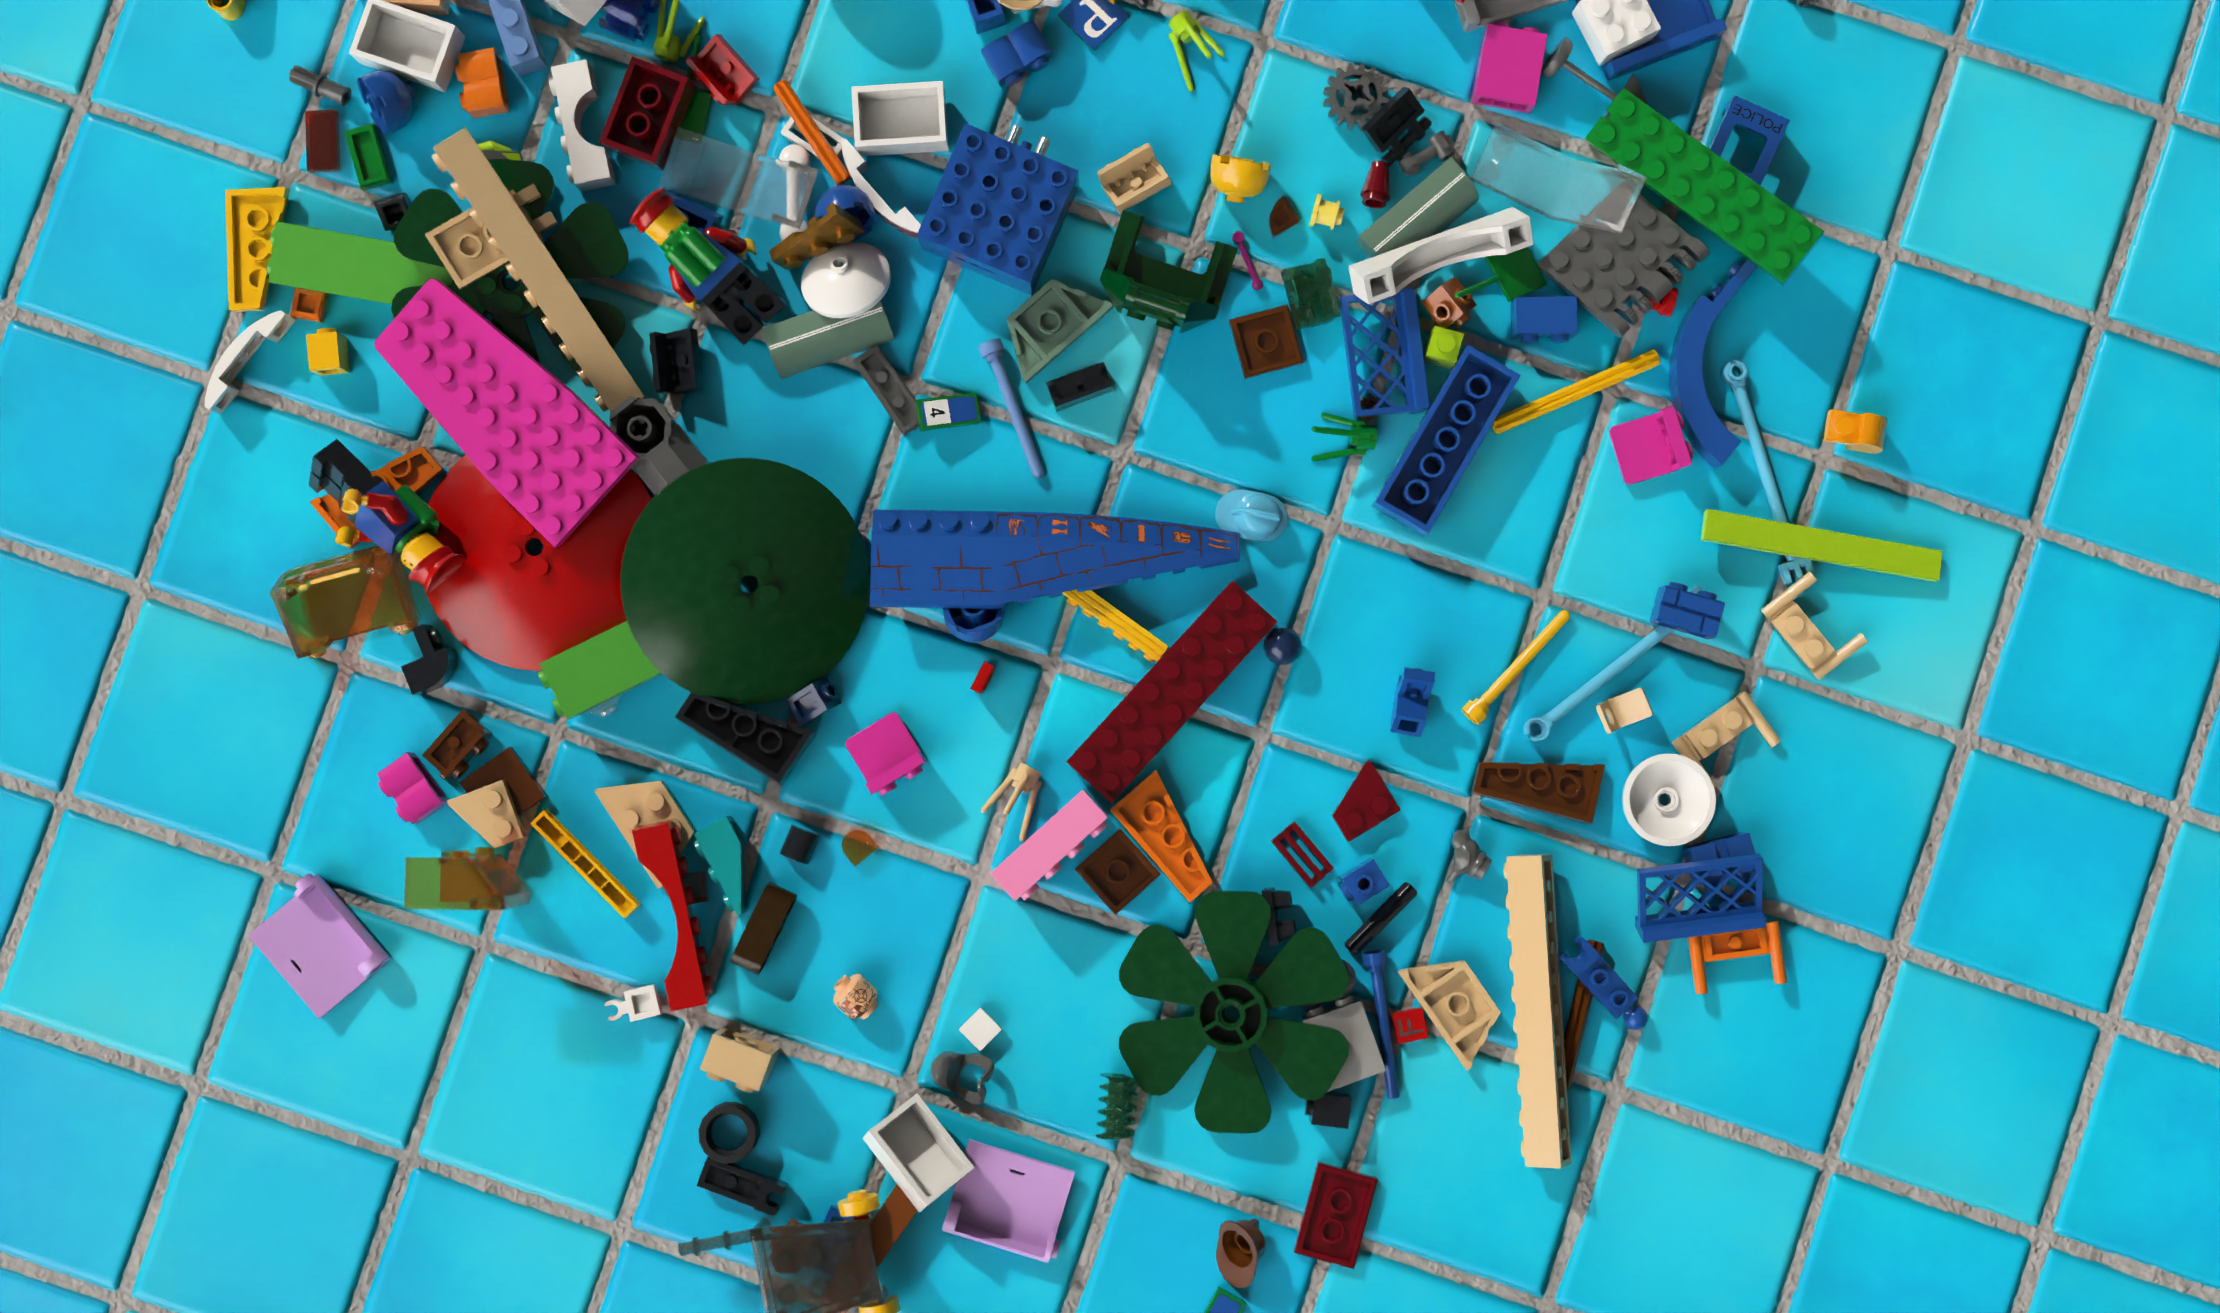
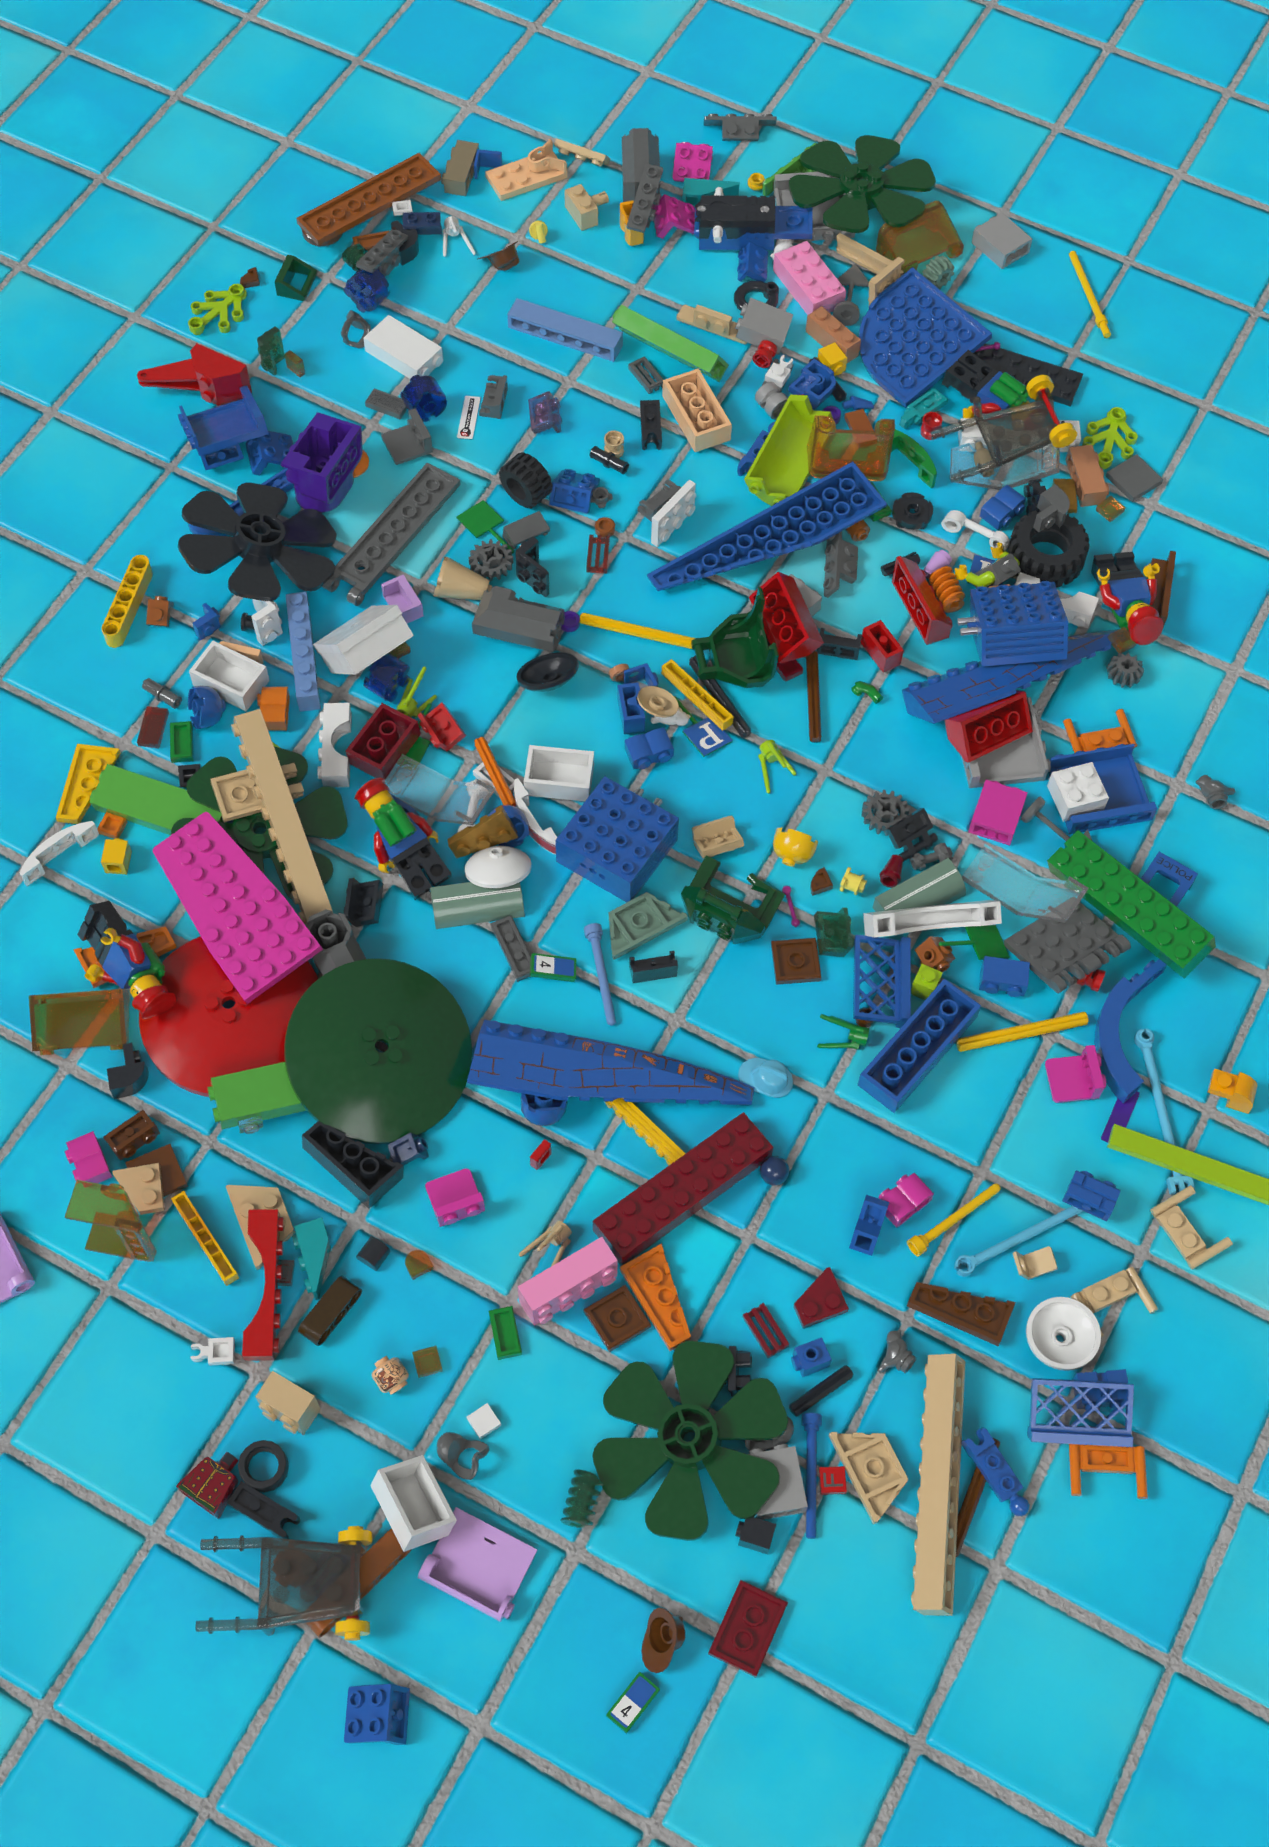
camera: 10 degrees right, 25 degrees down
(672, 1166) = (211, 1484): none -> dark red torso
(896, 968) = (427, 1361): none -> clear orange tile
(984, 914) = (505, 1332): none -> green tile
(1203, 238) = (759, 884): none -> dark green bar
(1452, 654) = (906, 1198): none -> dark pink brick
(1710, 490) = (1120, 1115): none -> dark purple sticker

